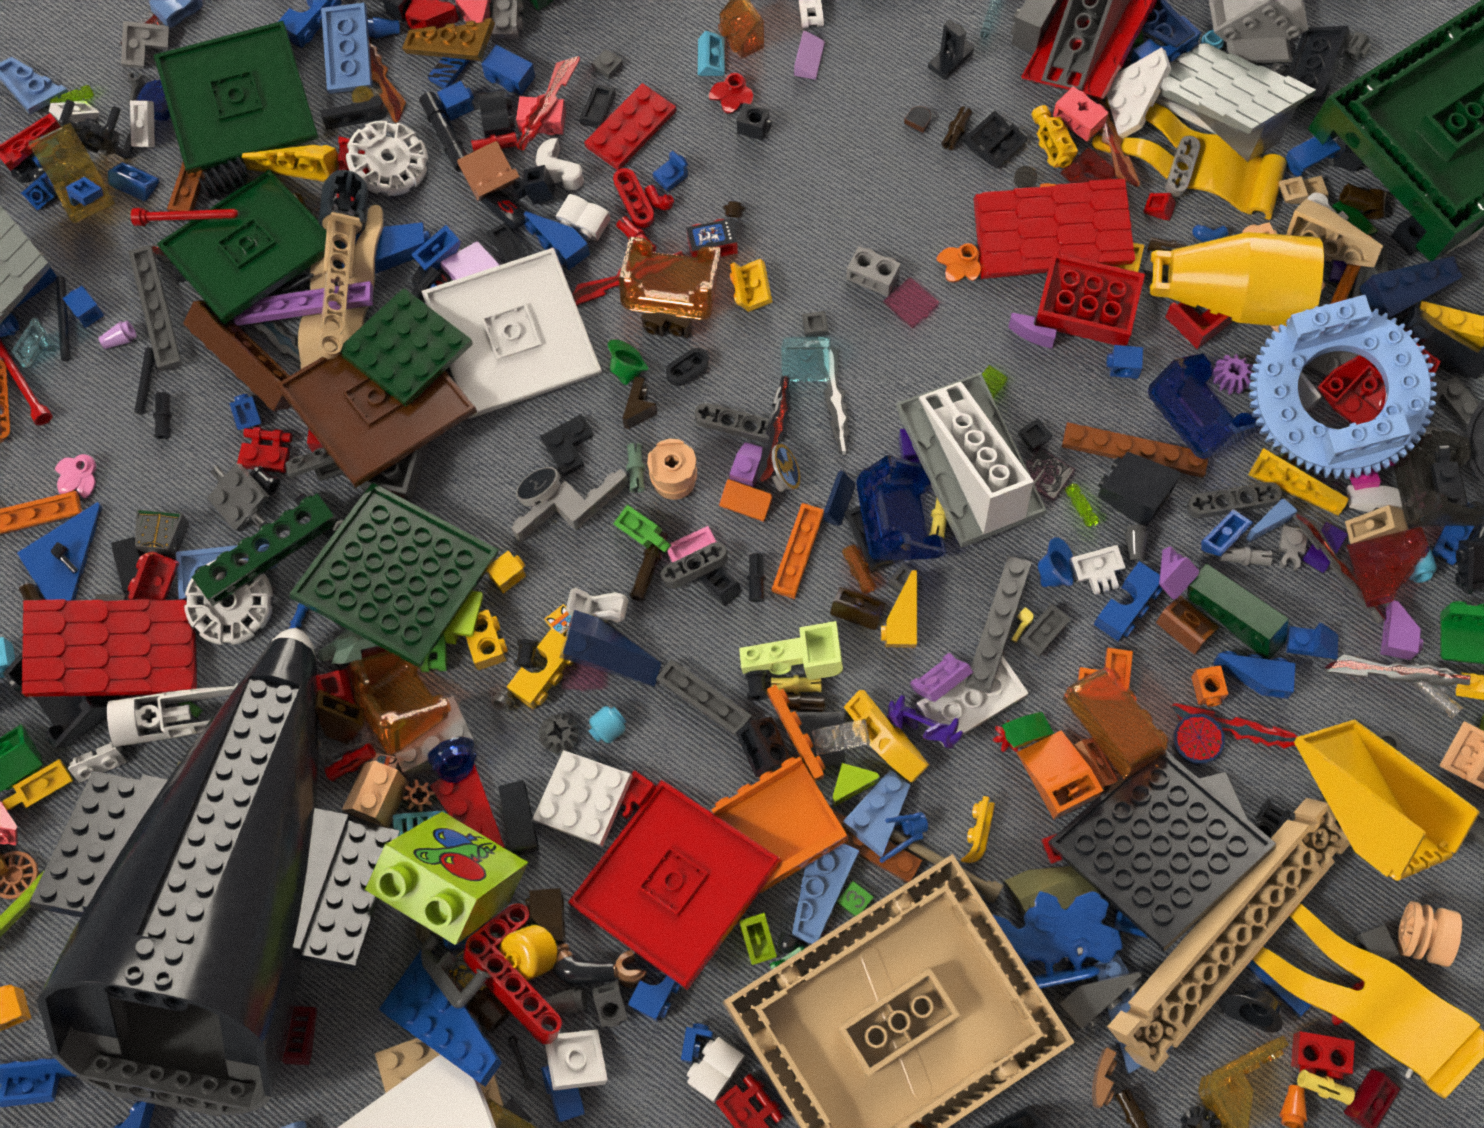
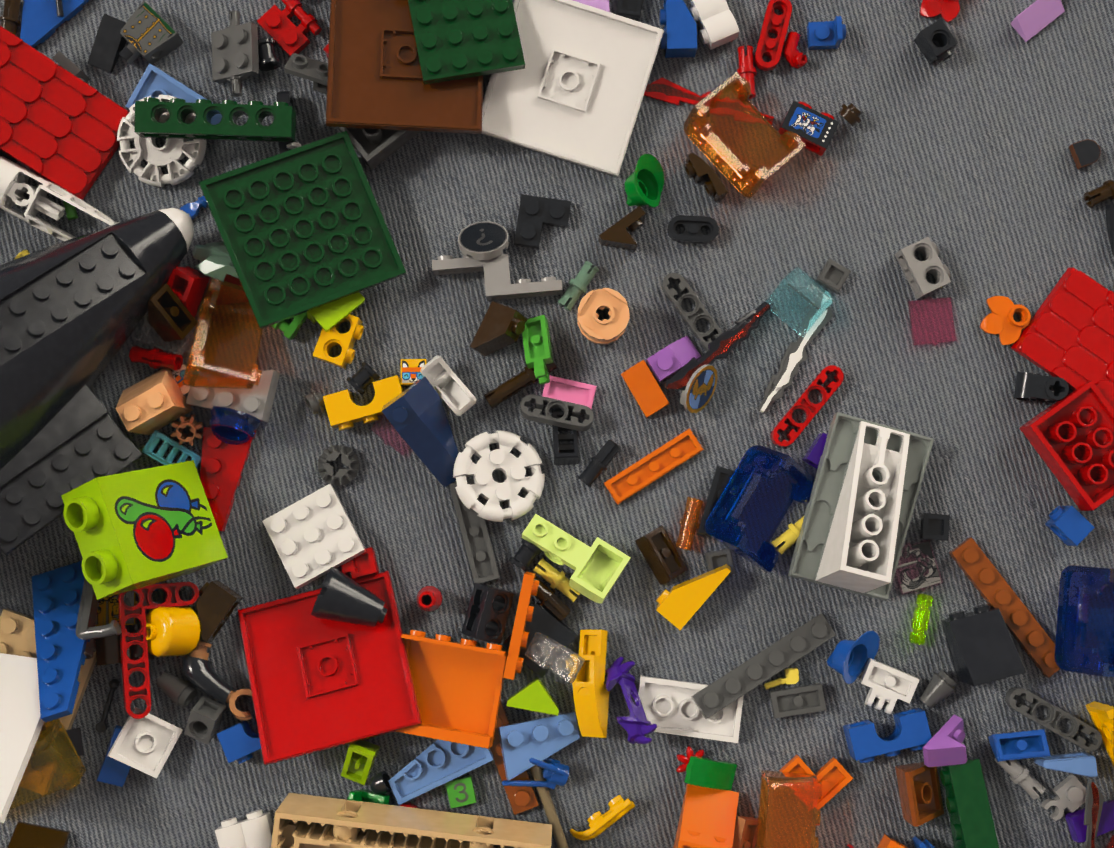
camera: 35 degrees right, 15 degrees up
(153, 577) = (114, 72): red bracket -> none
(506, 571) = (401, 294): yellow brick -> none
(518, 818) = (251, 511): black beam -> none
(601, 539) = (498, 329): none -> dark brown slope
(607, 724) = (379, 491): medium azure head -> none
(649, 818) = (347, 601): none -> black cone
(691, 1046) = (241, 803): blue bracket -> none
(694, 630) = (514, 473): none -> white plate
(710, 780) = (435, 595): none -> red cone
(751, 285) = (807, 197): yellow bracket -> none
(839, 499) = (723, 450): dark blue slope -> none
(873, 423) = (807, 406): none -> red beam
(941, 678) = (677, 680): medium lavender plate -> none
(994, 380) = (941, 449): clear neon green tile -> none
(1023, 288) = (1036, 387): none -> black piece
(1025, 328) = (1009, 426): medium lavender slope -> none

